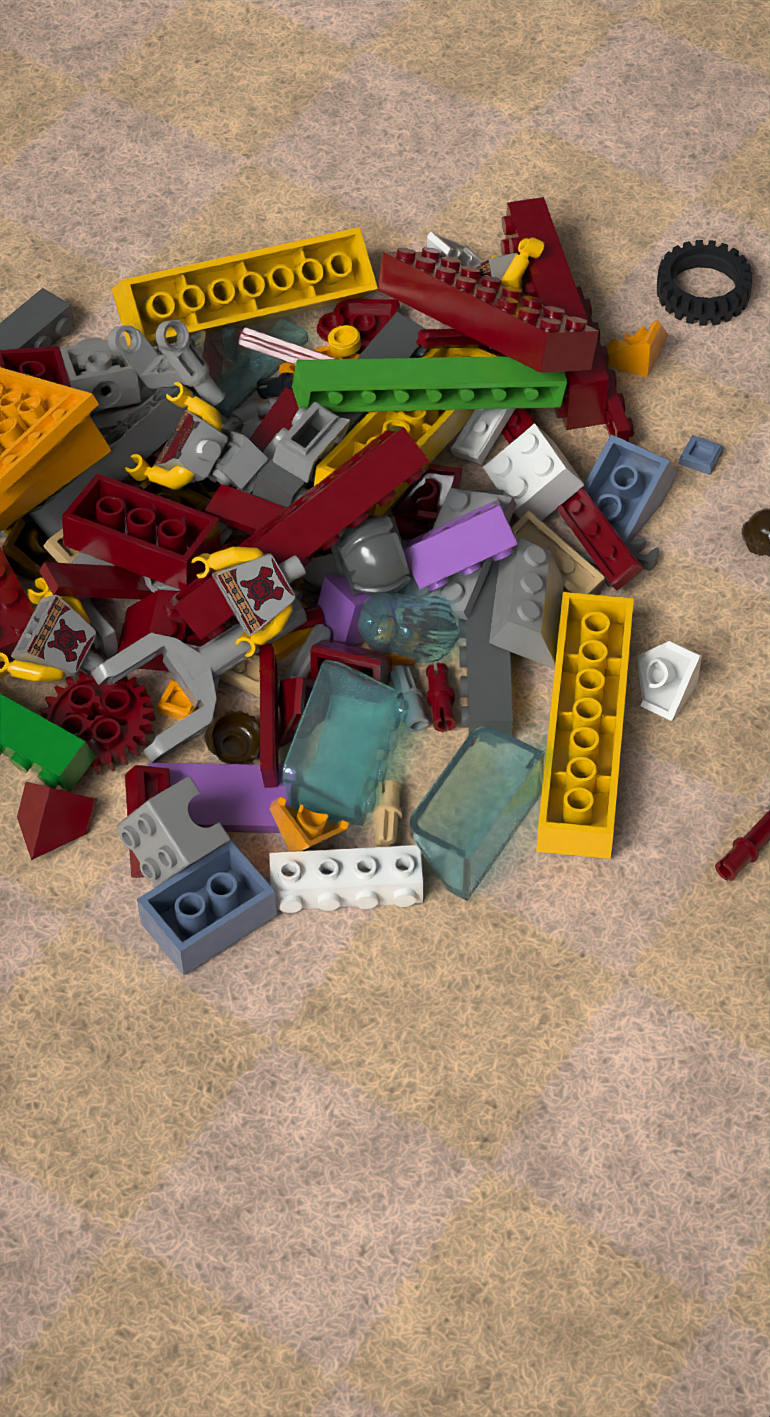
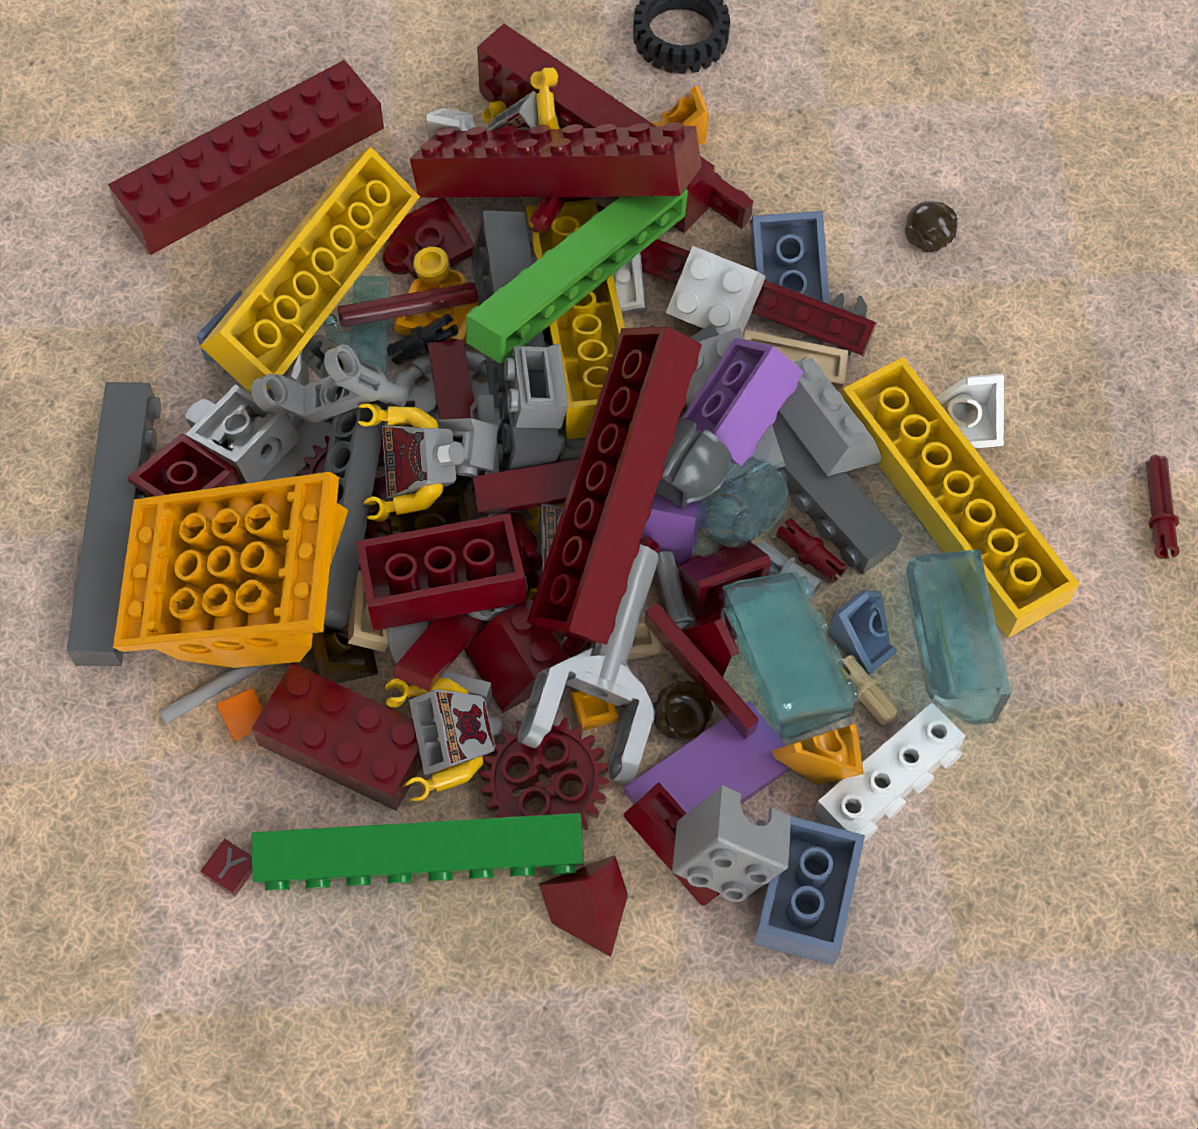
camera: 40 degrees left, 10 degrees up
(254, 590) = (632, 566): torso -> none
(283, 197) = (246, 156): none -> dark red brick
(421, 764) = (863, 630): none -> sand blue slope
(701, 455) = (814, 188): sand blue tile -> none

